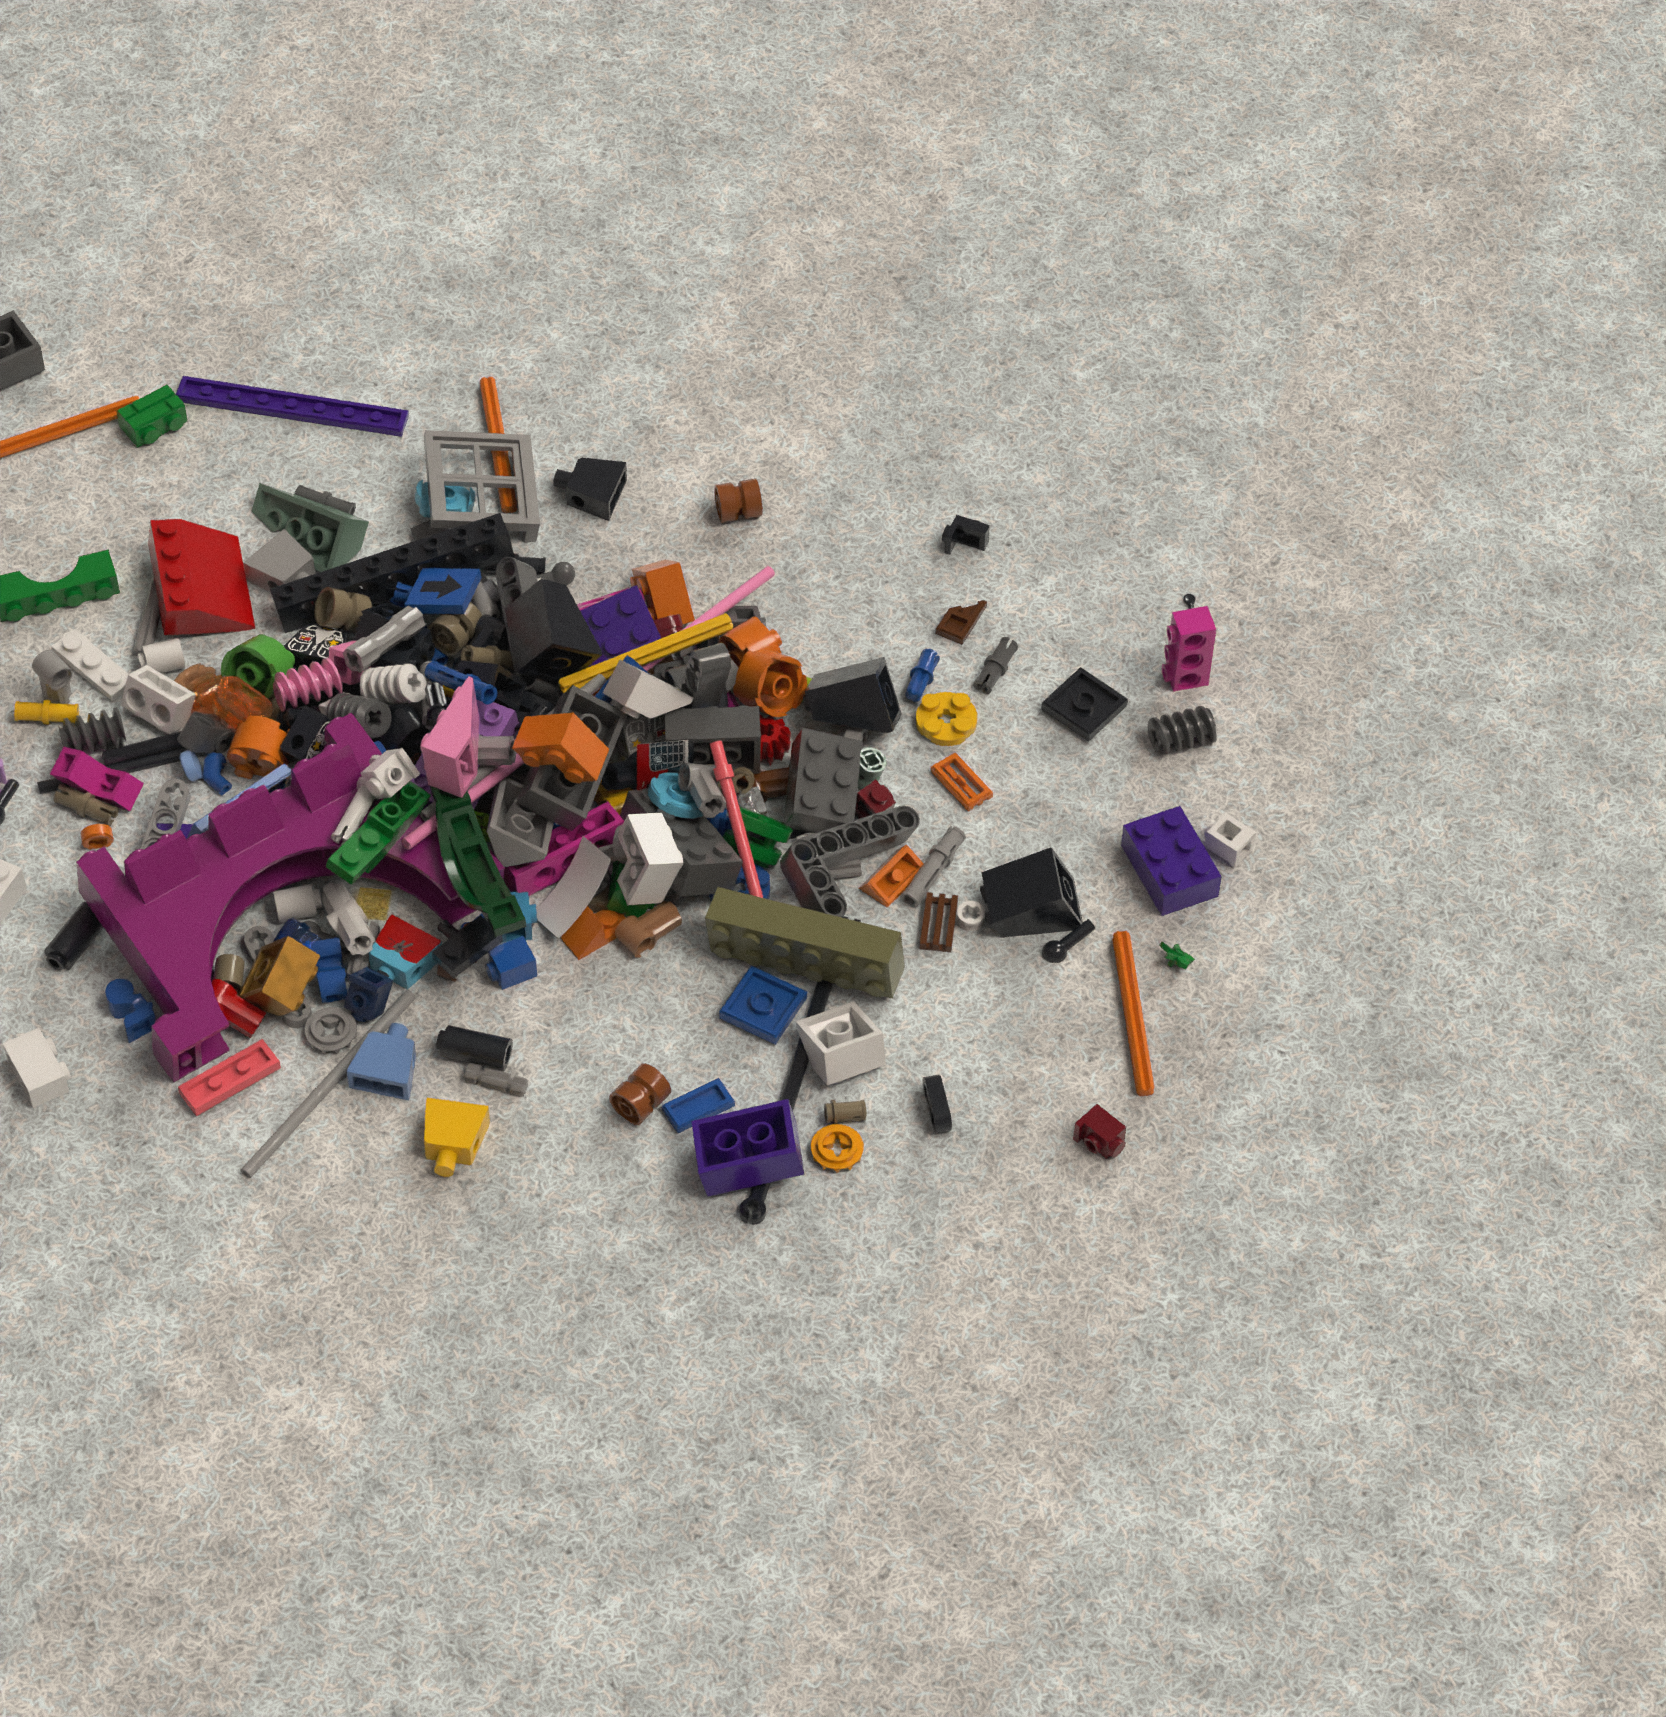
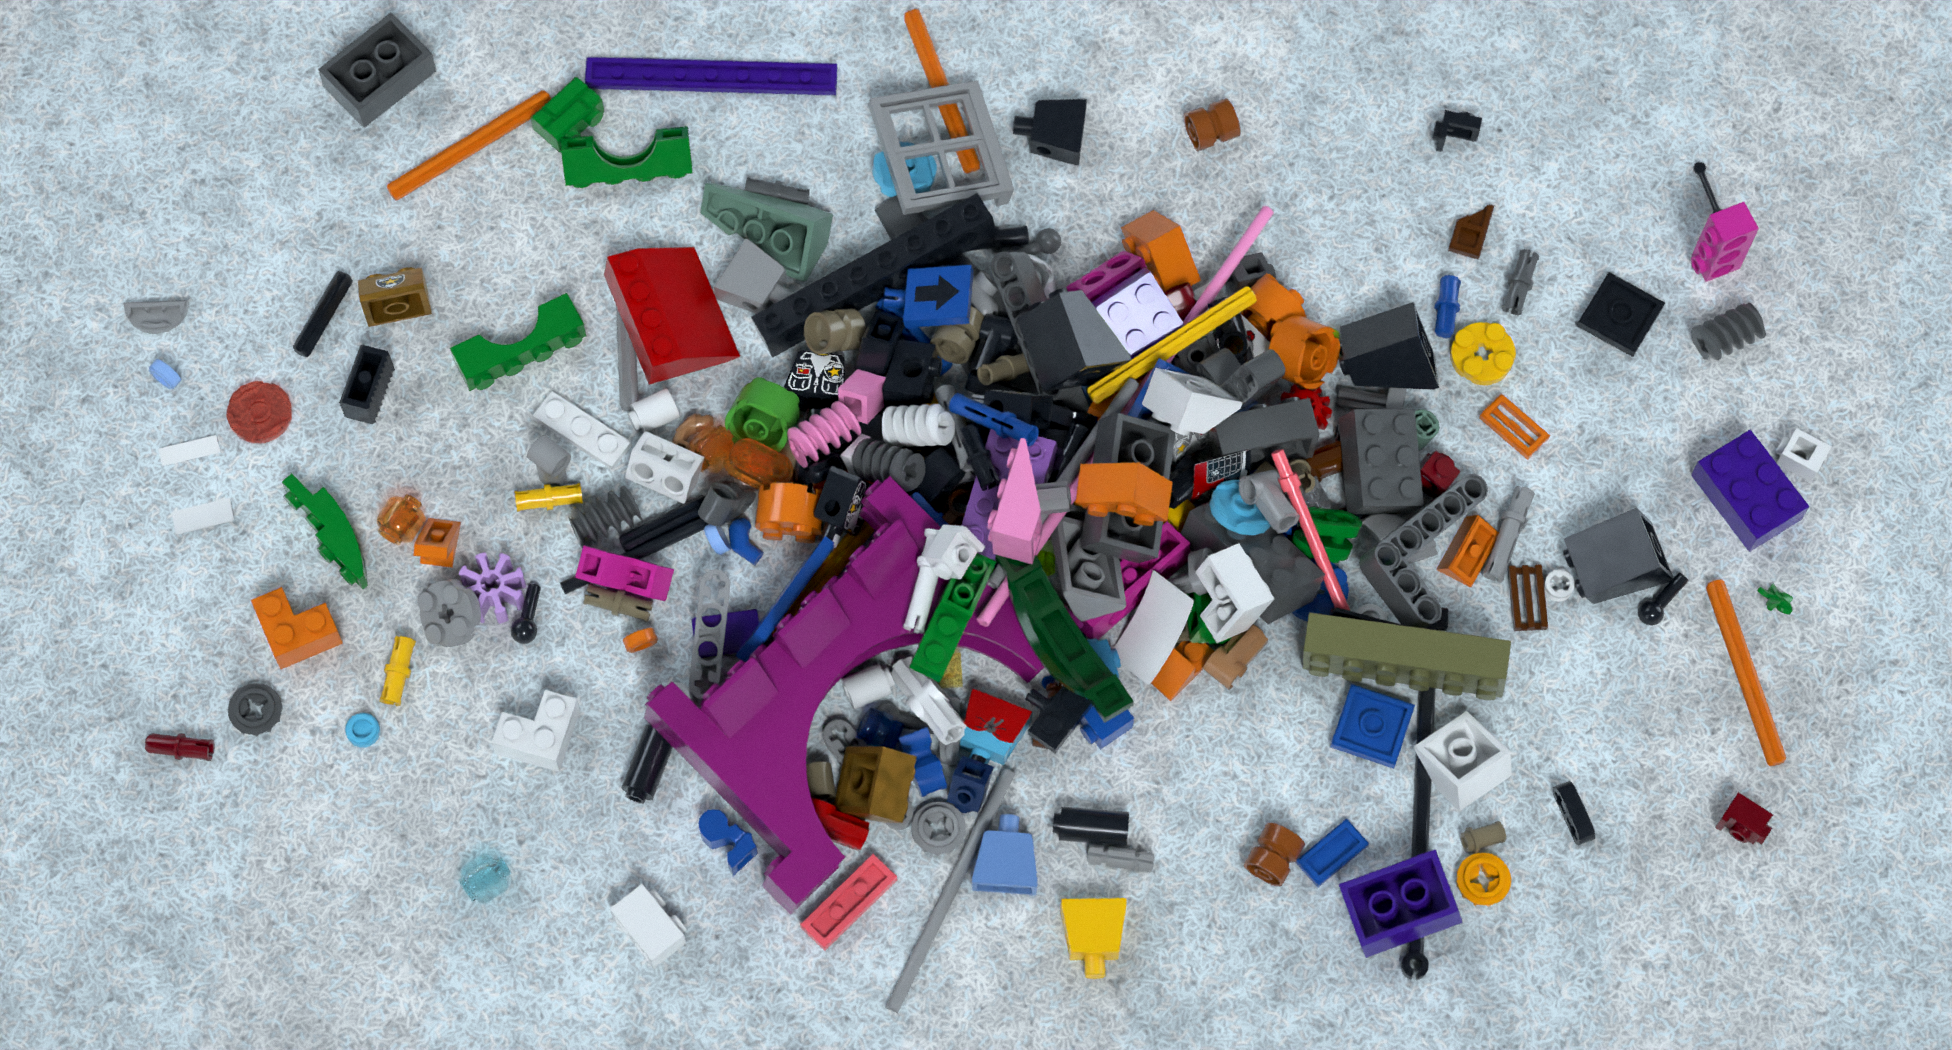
camera: 10 degrees left, 15 degrees up
(156, 452) = (589, 163): none -> green arch
(370, 648) = (884, 387): light grey axle -> none

